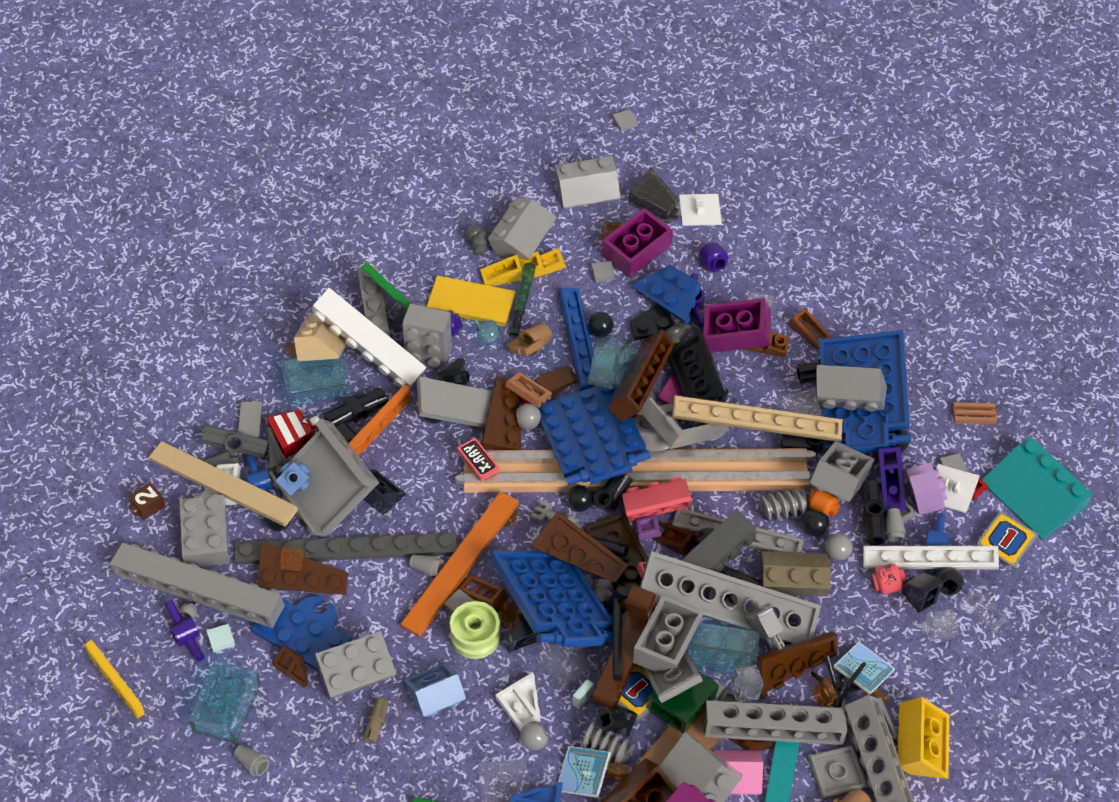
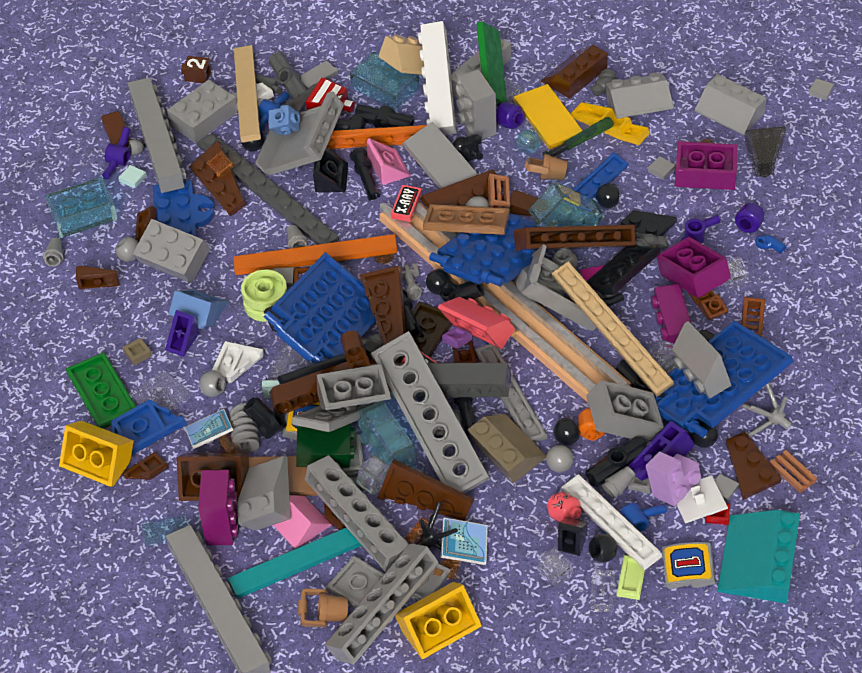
camera: 55 degrees right, 5 degrees down
(114, 679) = (48, 146): yellow tile -> none
(149, 613) = (113, 125): none -> reddish brown slope
(312, 698) = (125, 249): none -> light grey piece
(316, 749) = (94, 277): none -> reddish brown slope
(376, 720) = (144, 294): dark tan axle -> none
(396, 462) = (363, 168): none -> black pin
(408, 443) = (386, 162): none -> bright pink slope
(438, 770) = (137, 351): none -> dark tan plate
(442, 247) = (577, 71): none -> reddish brown slope
(455, 722) = (182, 333): none -> dark purple slope
(543, 431) = (466, 219): none -> medium nougat tile
(670, 291) = (681, 211): blue wing -> none
(700, 209) = (791, 185): white piece -> none
(746, 263) = (770, 242): none -> blue arm
(763, 373) = (670, 311): none -> magenta brick
(766, 622) = (426, 446): light grey piece -> none
(783, 504) = (560, 402): light grey piece -> none
(919, 385) = (775, 416): none -> light grey plant
(948, 434) = (750, 466): none -> reddish brown wing
(987, 584) = (630, 579): none -> yellowish green tile

